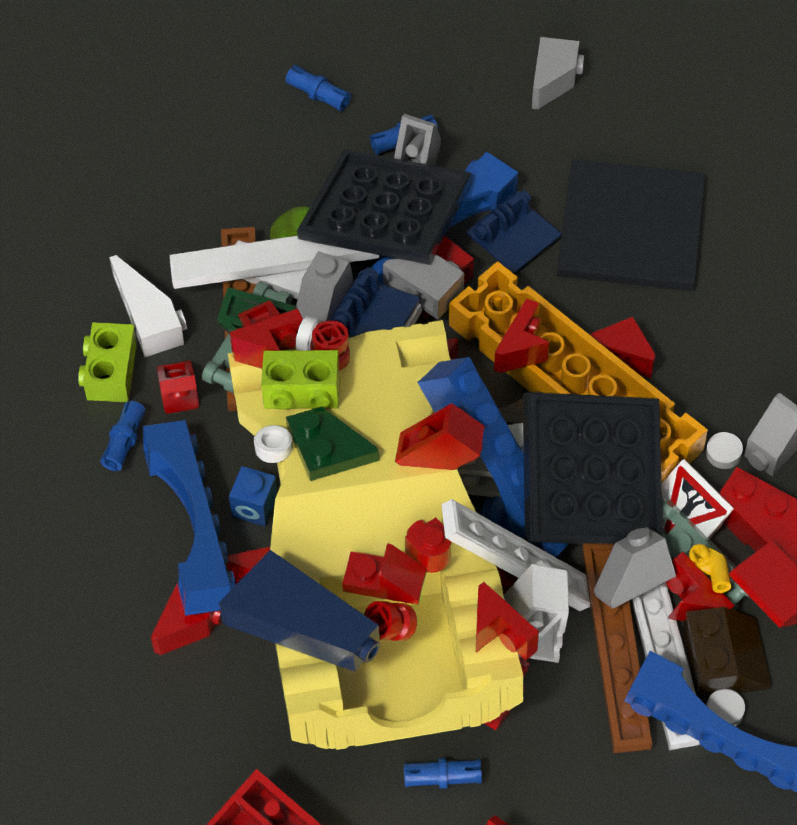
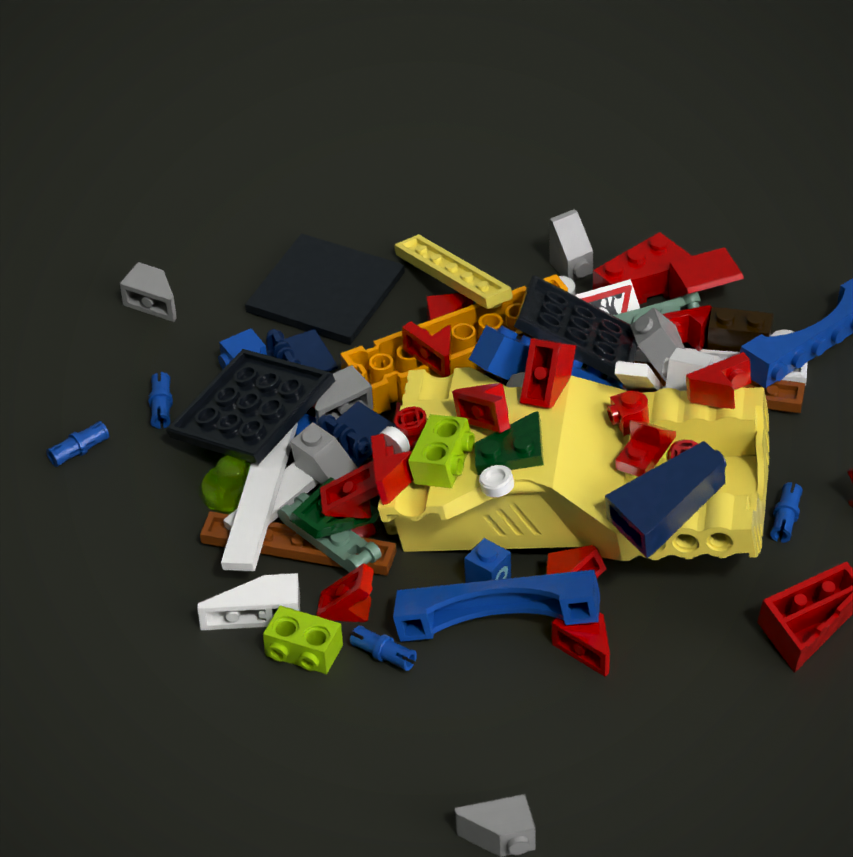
camera: 70 degrees left, 15 degrees down
(371, 396) = (483, 406): none -> red slope
(418, 141) = (189, 376): light grey slope -> none
(675, 329) = (454, 272): none -> light yellow plate
(712, 564) = (676, 302): yellow arm -> none

